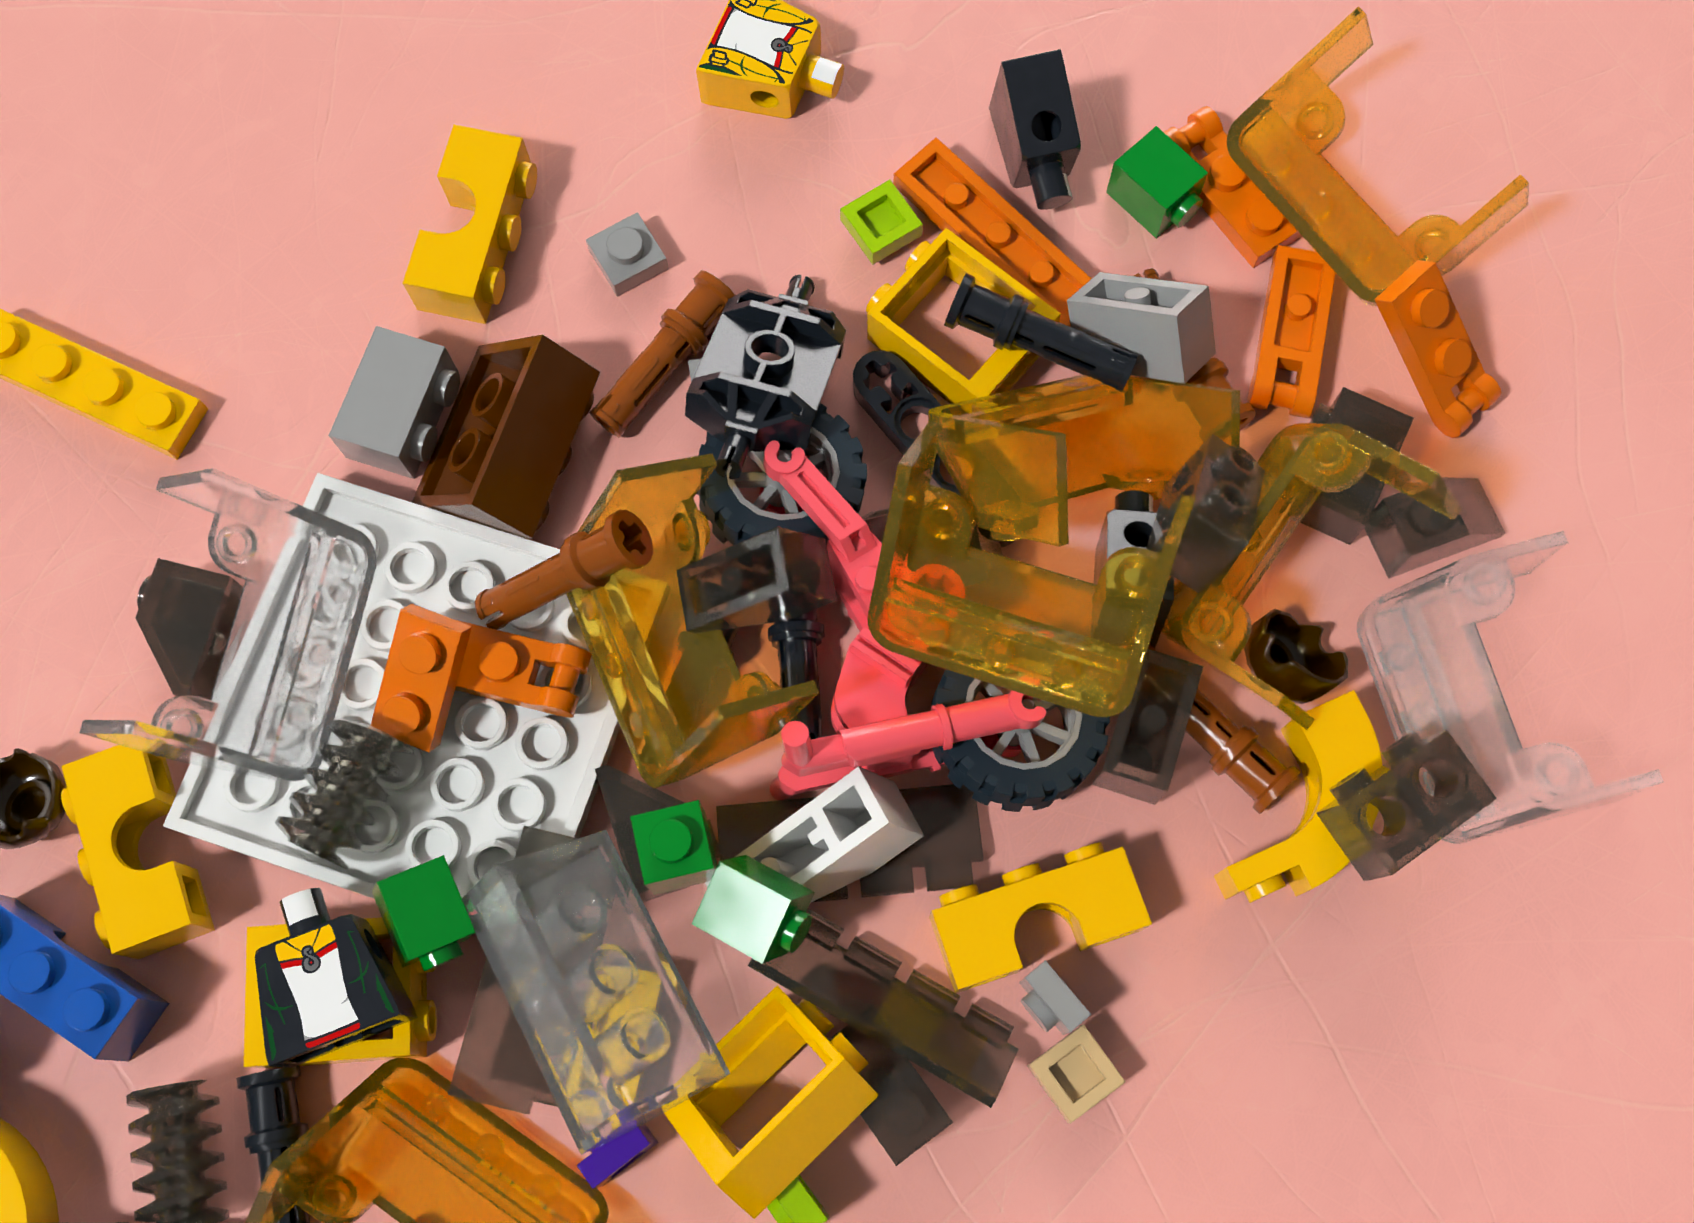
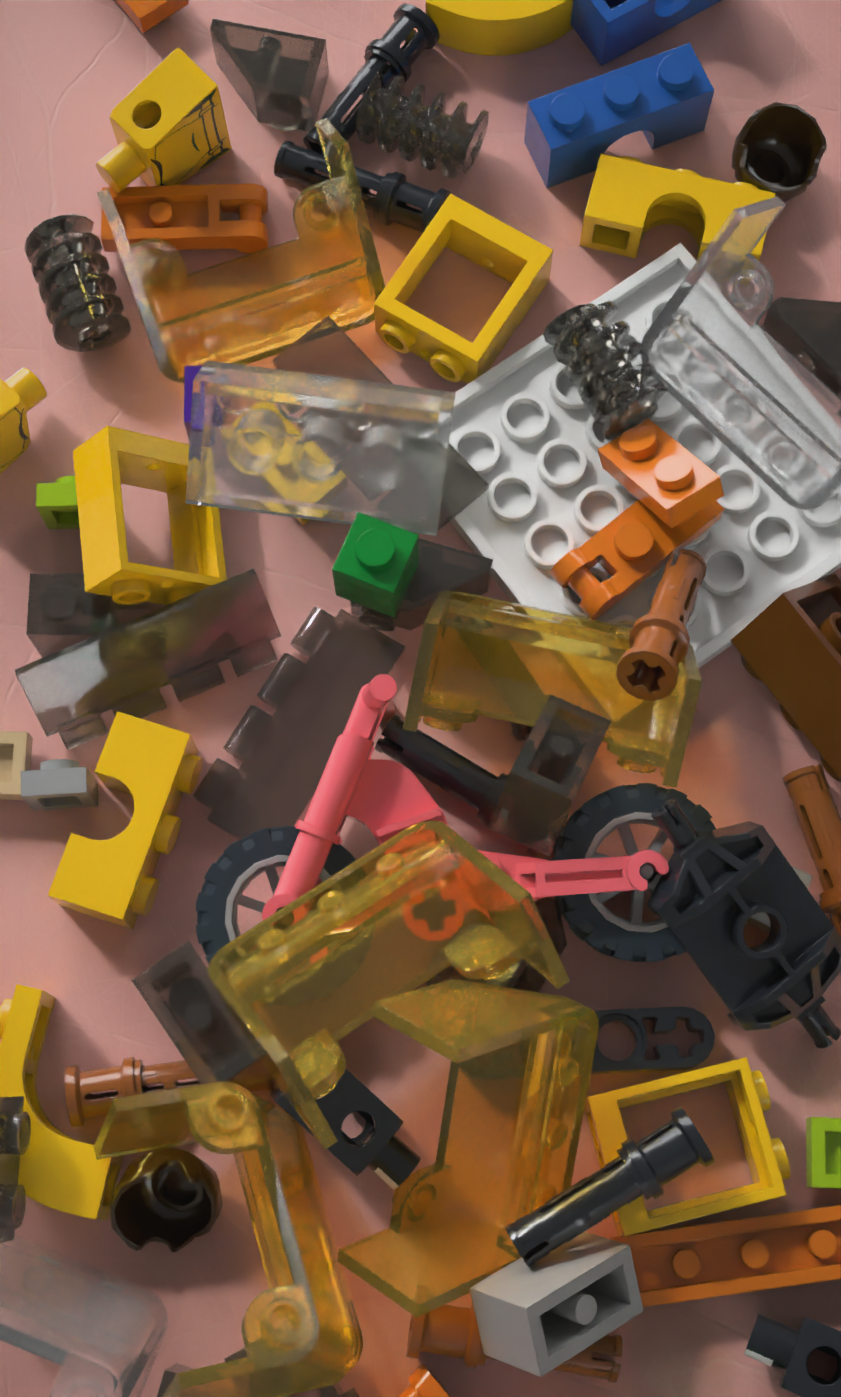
camera: 125 degrees right, 0 degrees up
(324, 984) = (462, 268): torso -> none
(424, 914) = (464, 361): green brick -> none
(755, 909) = (285, 592): brick -> none
(840, 834) = (303, 684): white slope -> none
(1220, 526) = (328, 1195): clear smoke brick -> none

